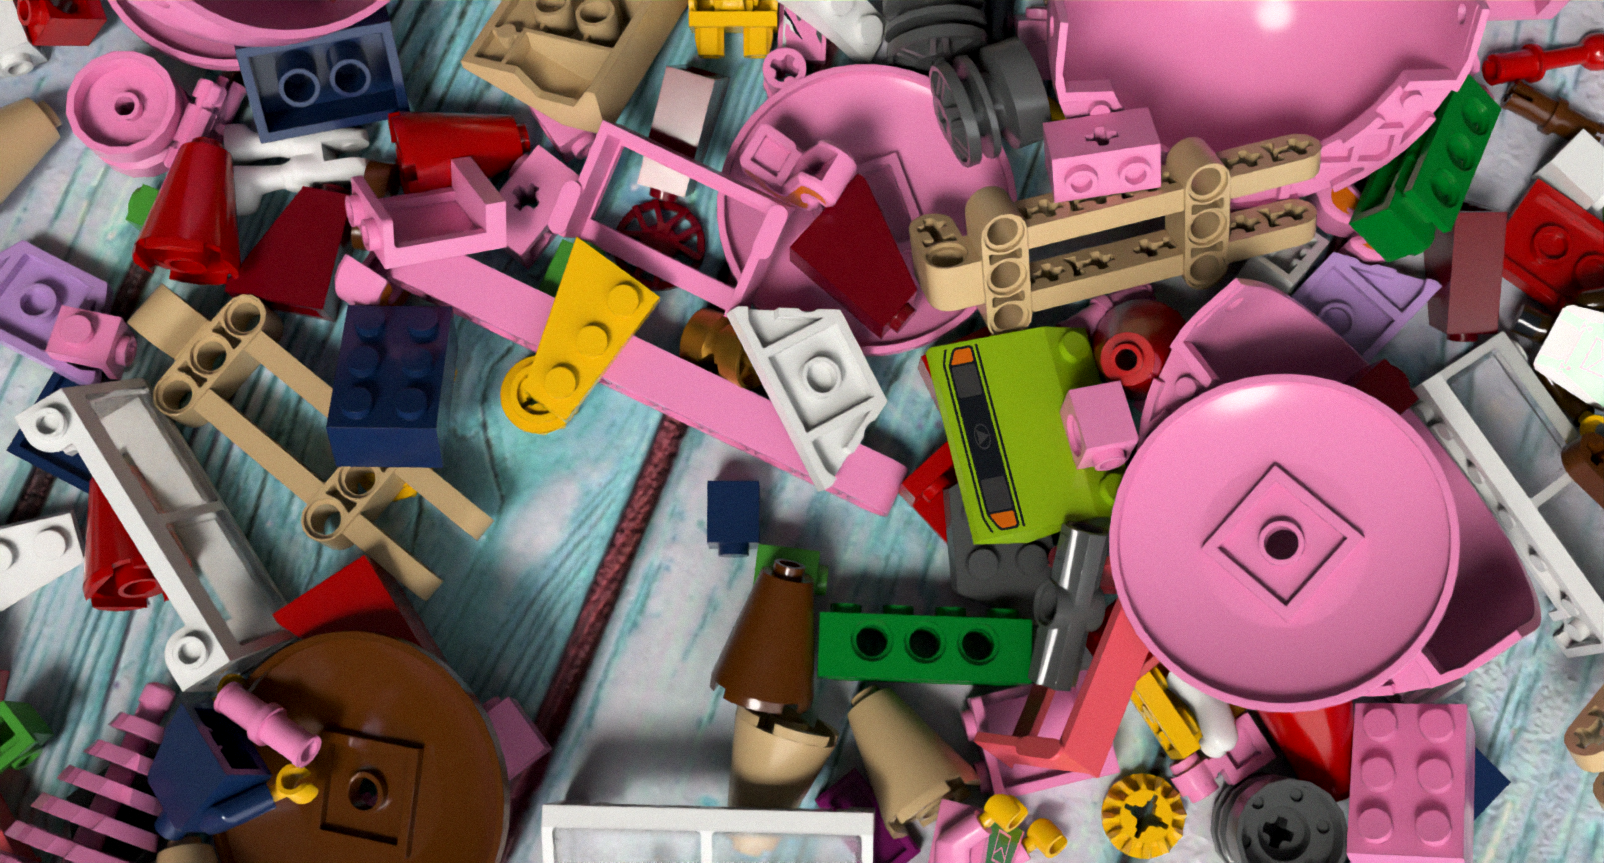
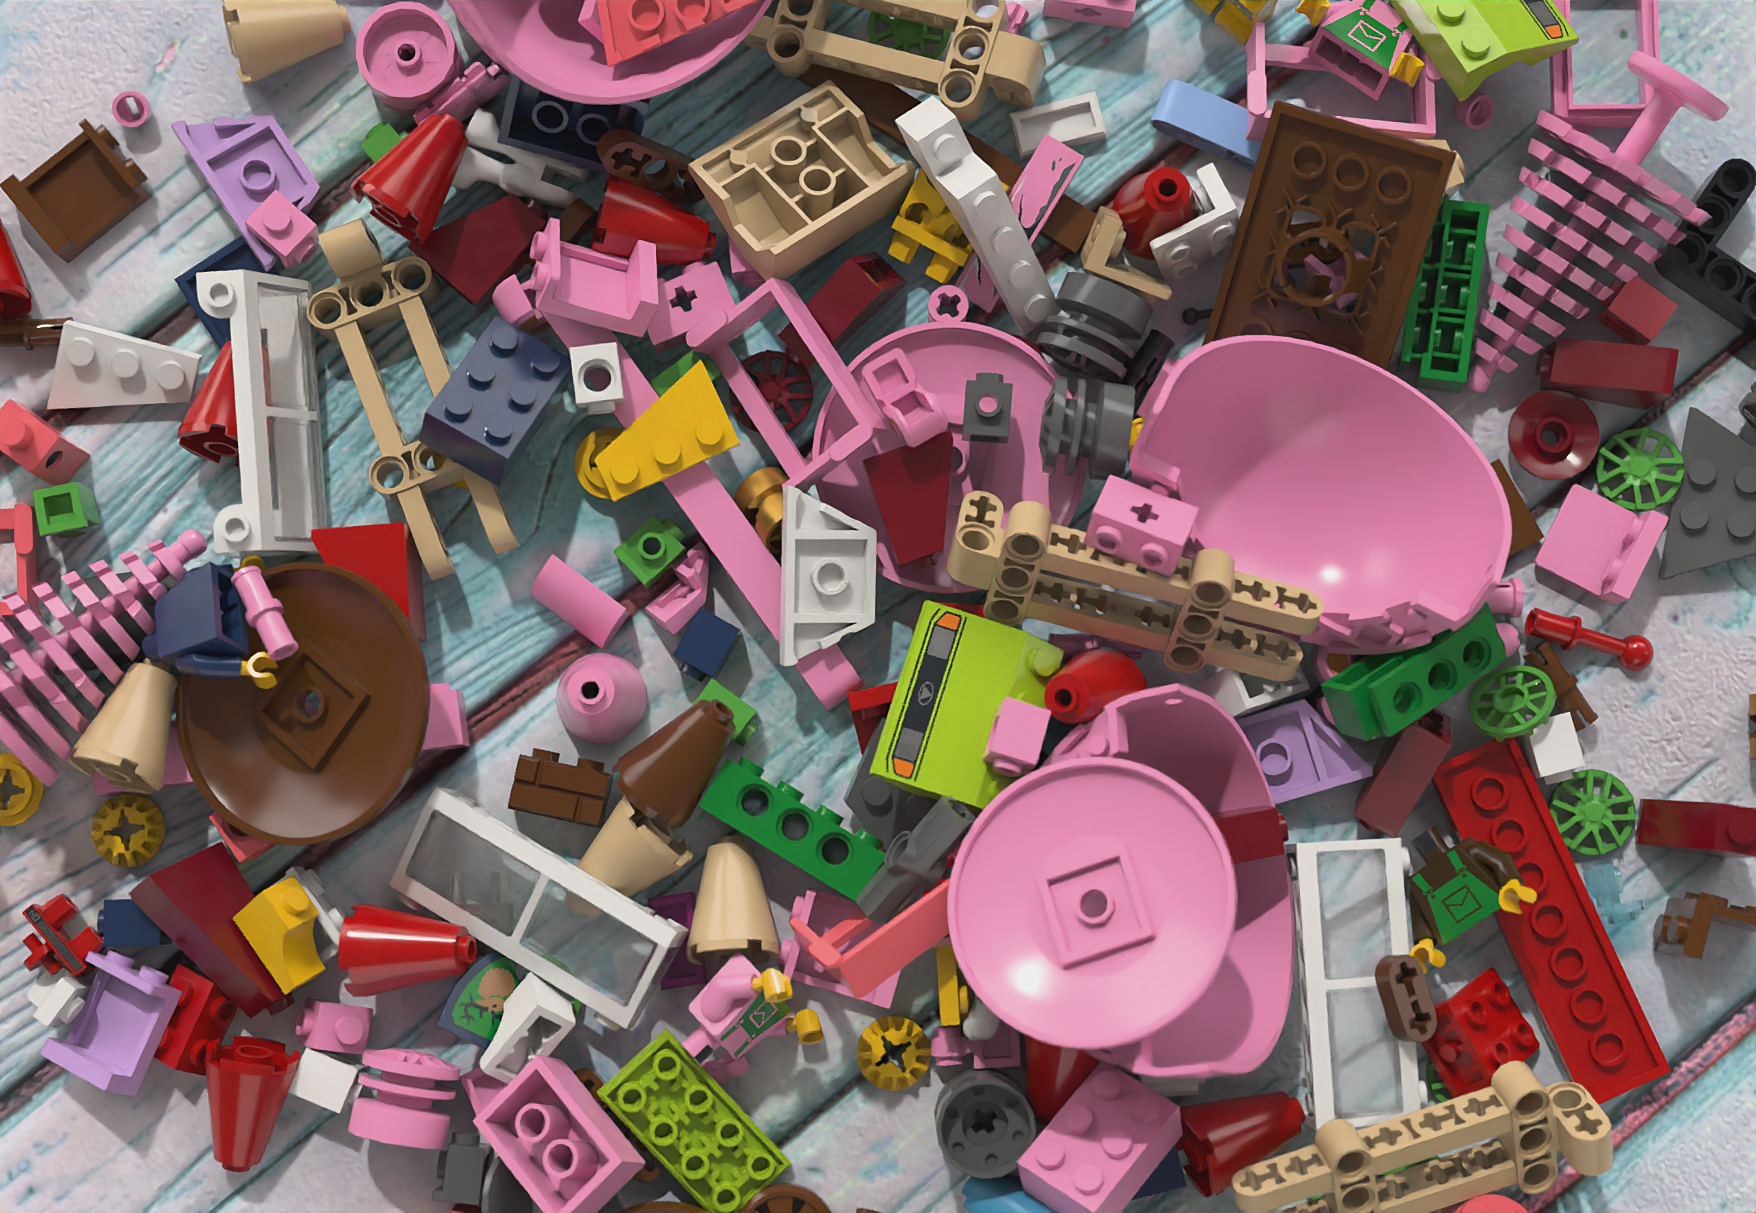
camera: 30 degrees right, 5 degrees up
(412, 76) = (644, 152): none -> reddish brown beam
(479, 284) = (592, 357): none -> white brick
(583, 544) = (578, 602): none -> bright pink brick
(628, 473) = (652, 567): none -> bright green brick
(667, 739) = (560, 789): none -> reddish brown brick
(669, 644) = (615, 709): none -> bright pink cone
(686, 480) = (686, 595): none -> bright pink slope
(880, 156) = (982, 425): none -> dark grey brick
(1525, 708) = (1234, 1135): none -> red cone
(1526, 151) = (1512, 702): none -> bright green wheel

